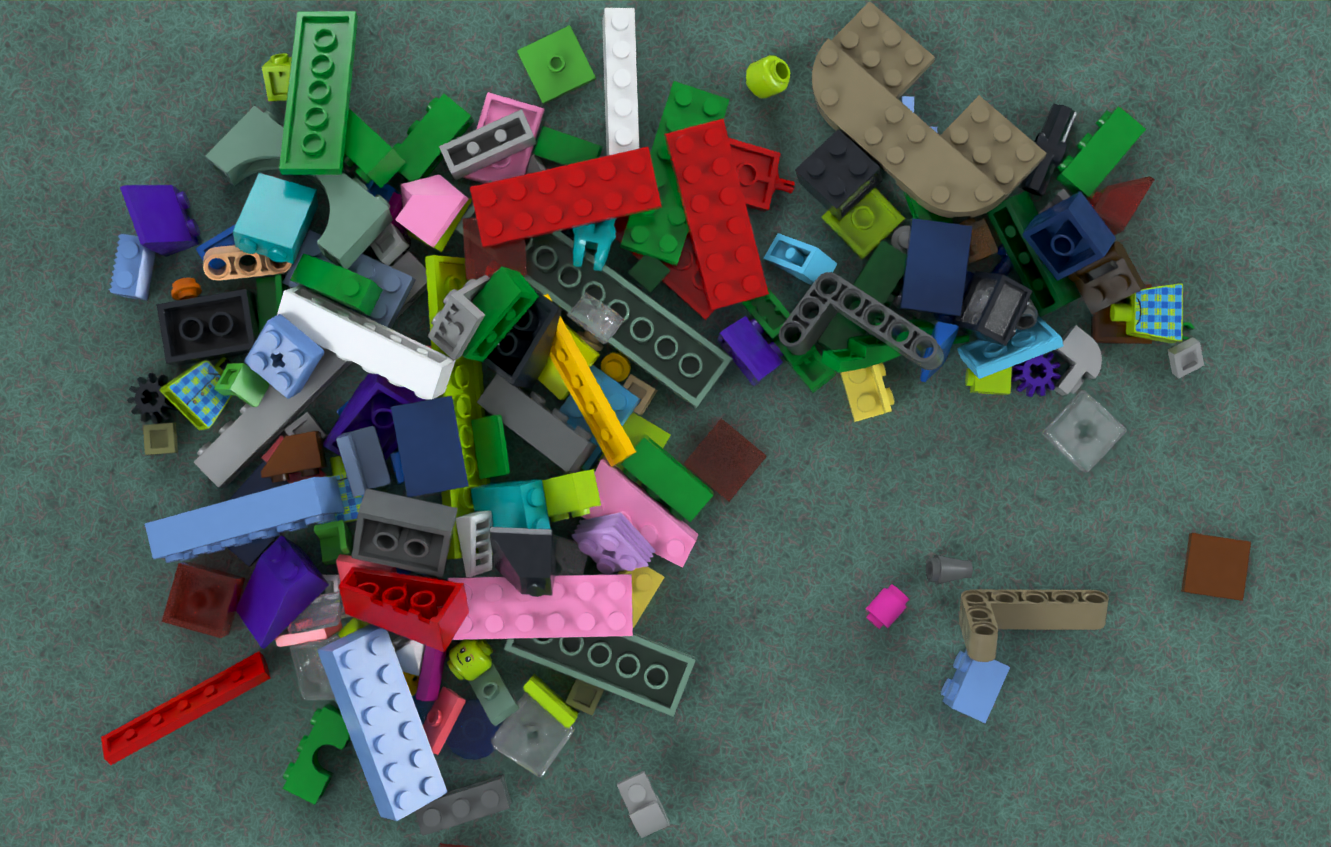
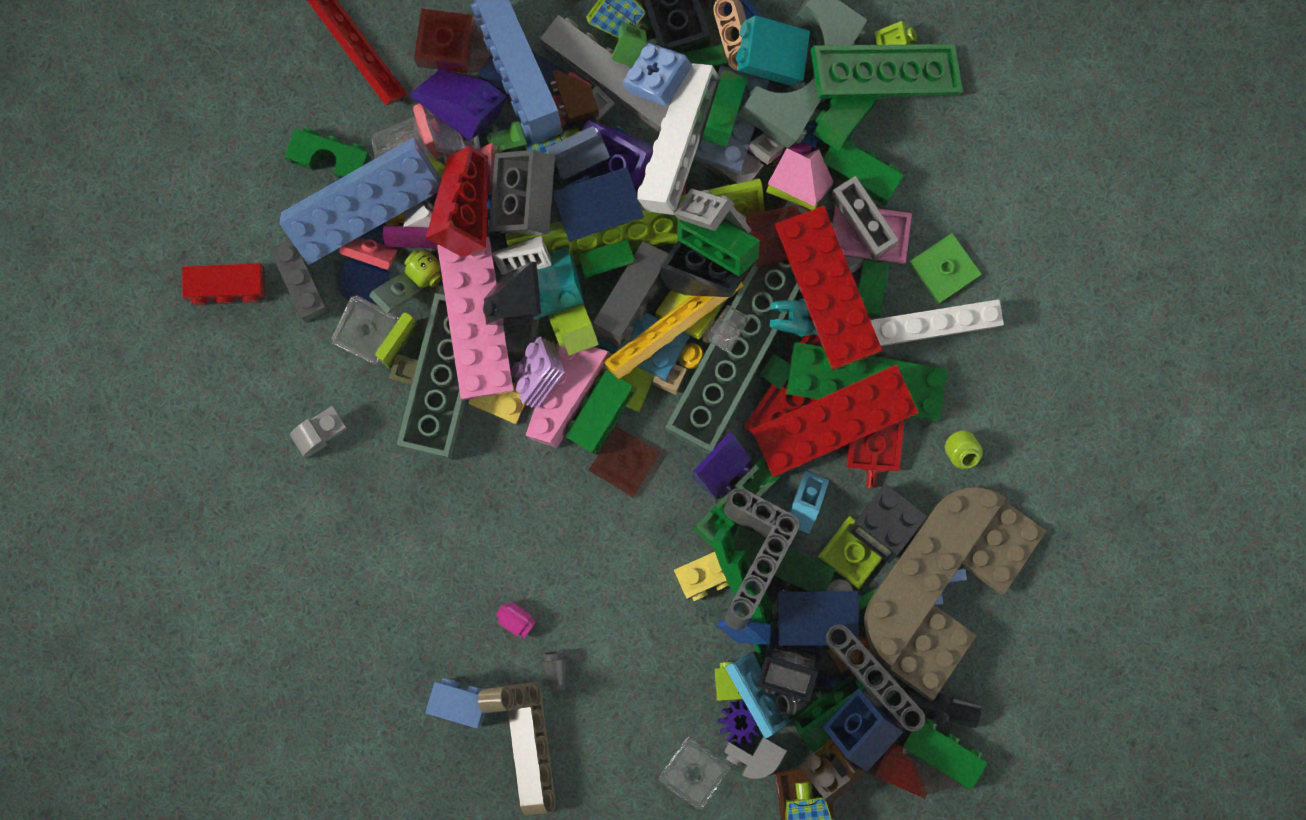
camera: 85 degrees right, 5 degrees down
(1028, 206) = (888, 683): none -> dark grey beam

